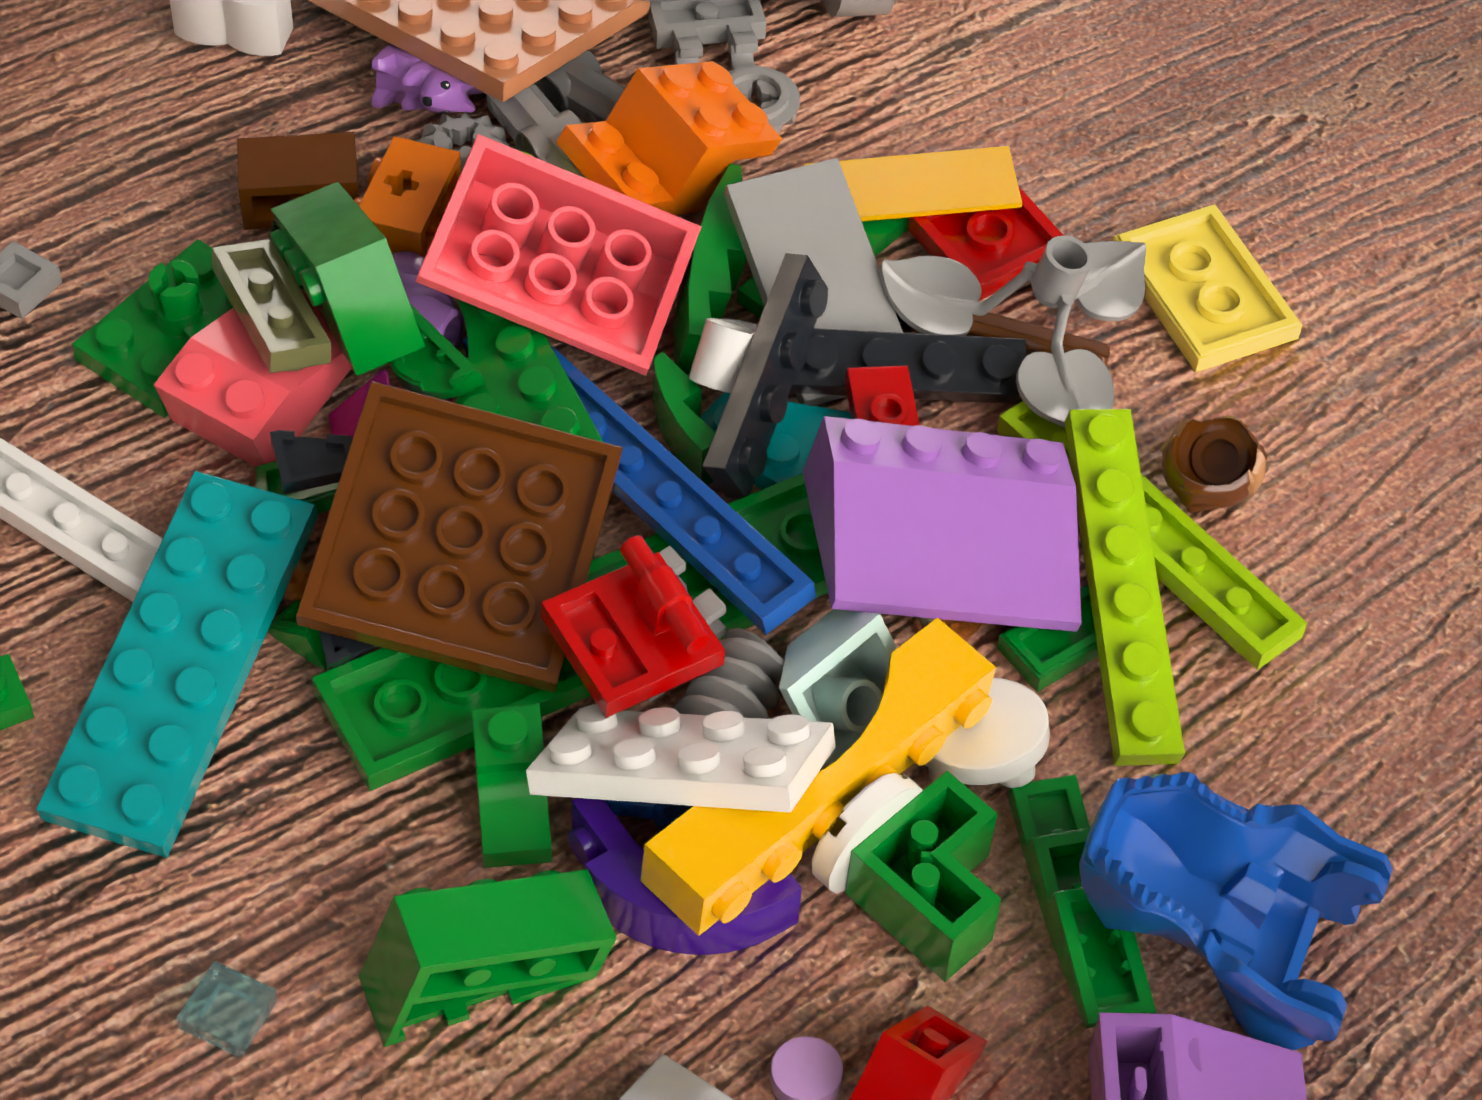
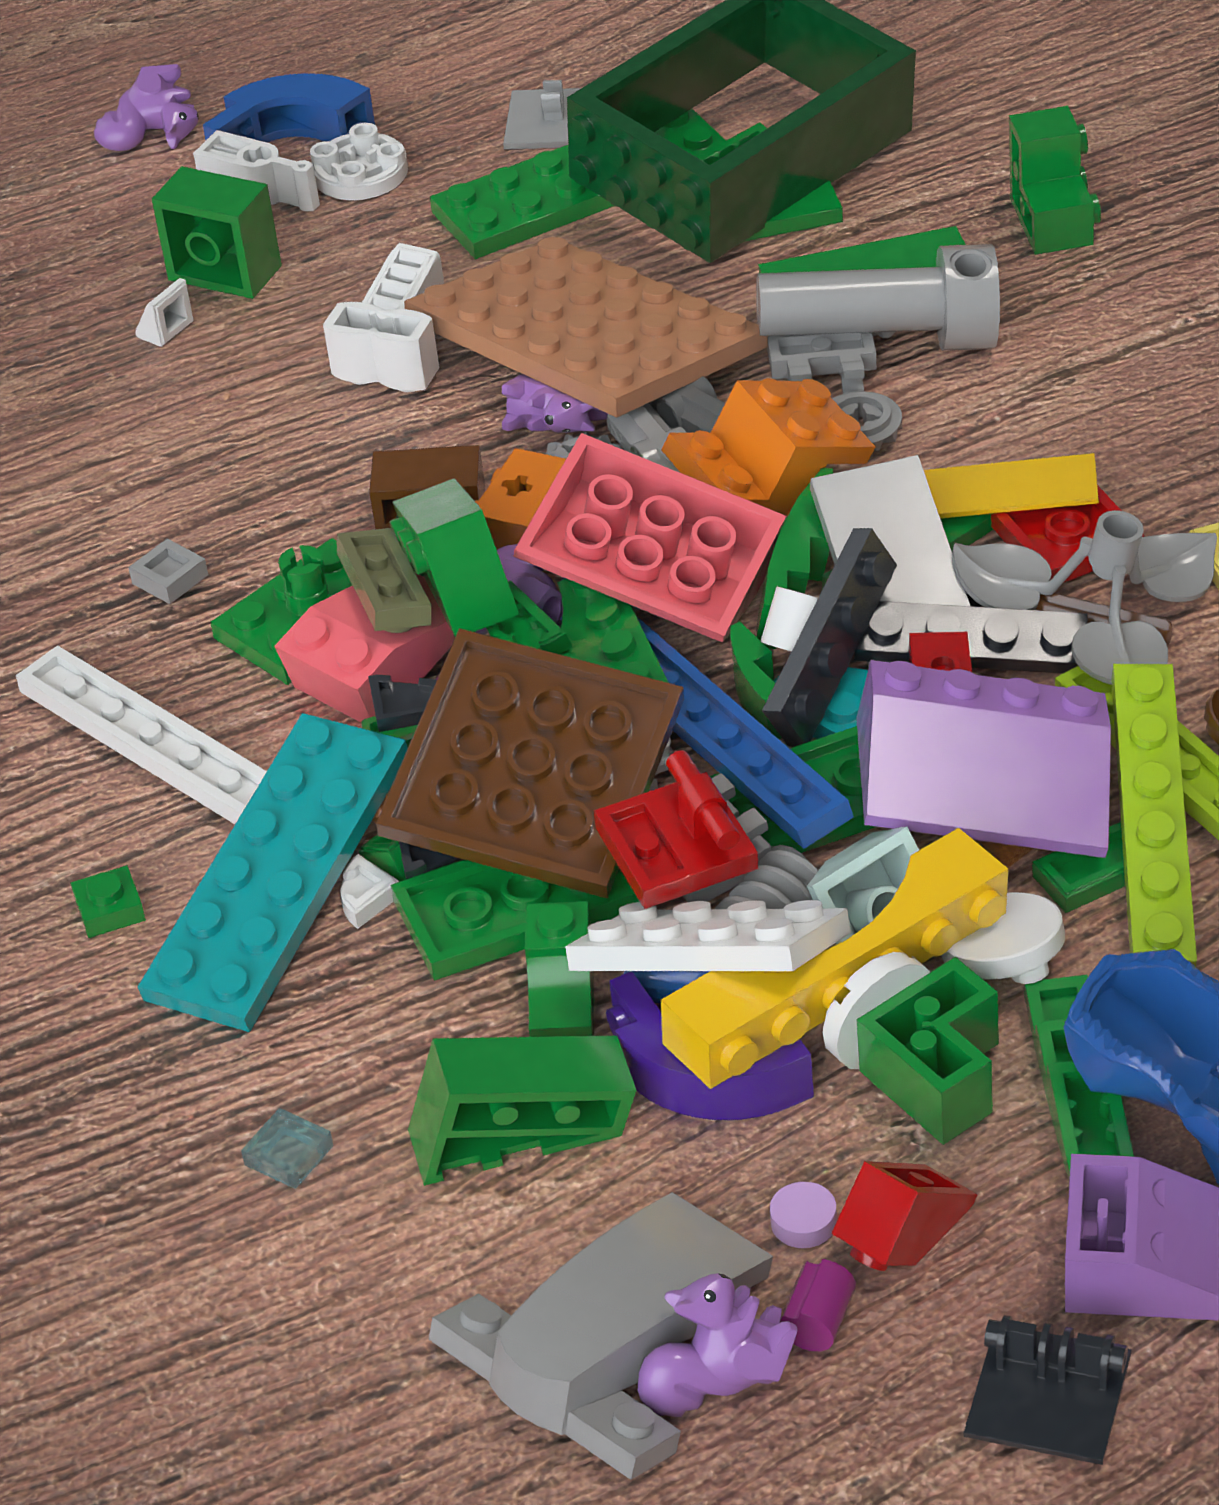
camera: 15 degrees right, 10 degrees down
(280, 678) = (364, 890): none -> white tile

